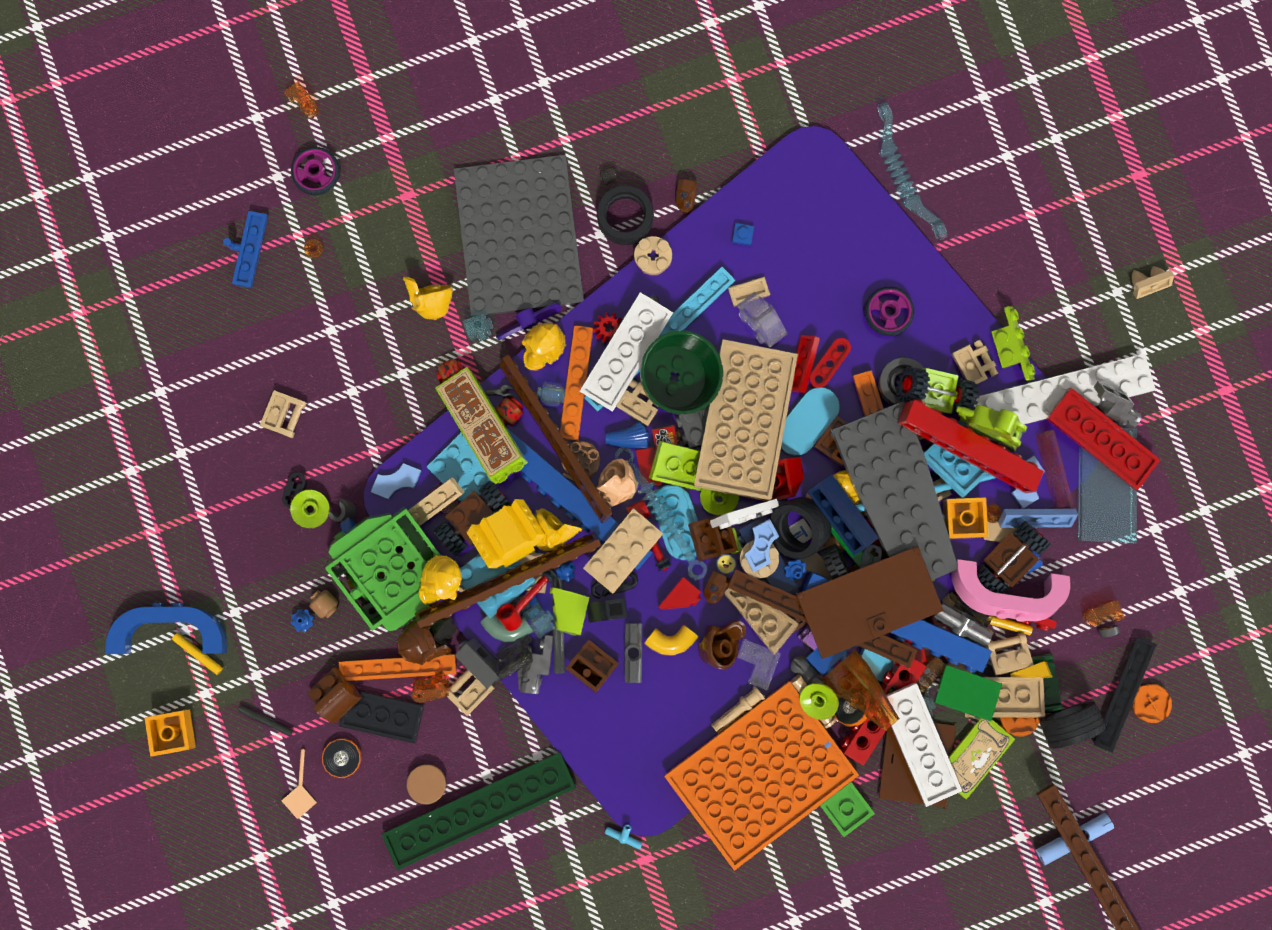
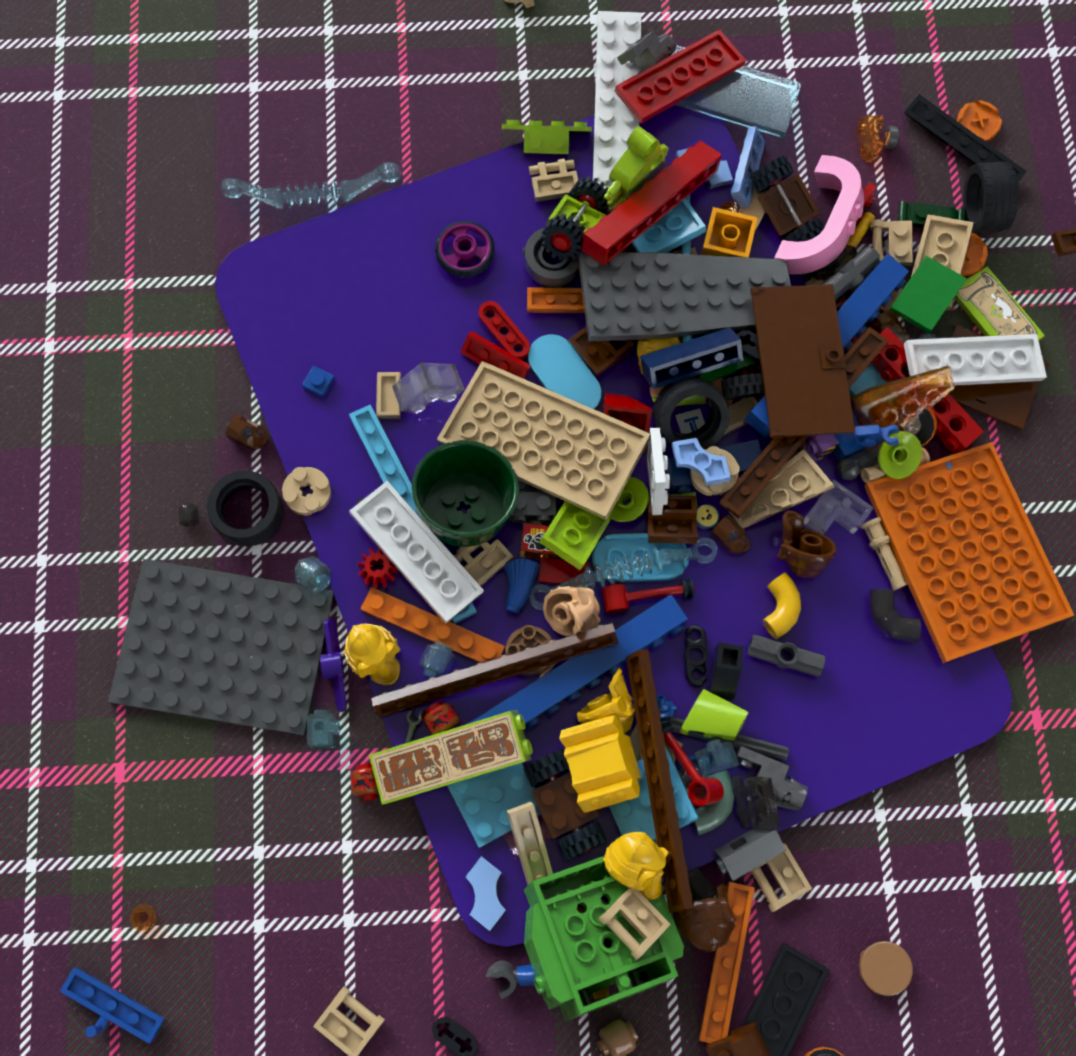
camera: 80 degrees left, 10 degrees down
(299, 175) = (23, 870): magenta wheel -> none
(299, 511) = (499, 1015): lime dish -> none
(404, 593) = (641, 916): none -> tan plate
(430, 301) = (266, 779): yellow head -> none
(431, 688) = (765, 926): clear orange leg -> none
(478, 811) = (935, 913): dark green plate -> none
(590, 281) = (312, 574): none -> clear light blue head
(592, 666) = (790, 710): reddish brown brick -> none
(623, 551) = (660, 627): tan plate -> none
(624, 836) = (1006, 735): medium azure piece -> none
(681, 596) = (731, 579): red slope -> none
(685, 725) = (889, 620): none -> clear smoke cylinder
(795, 569) = (738, 434): blue plant -> none
(824, 672) = (871, 435): none -> blue plate
(847, 809) = (1029, 467): bright green plate -> none
(1038, 670) = (919, 216): yellow piece -> none
(1054, 469) = (687, 133): clear pink slope -> none

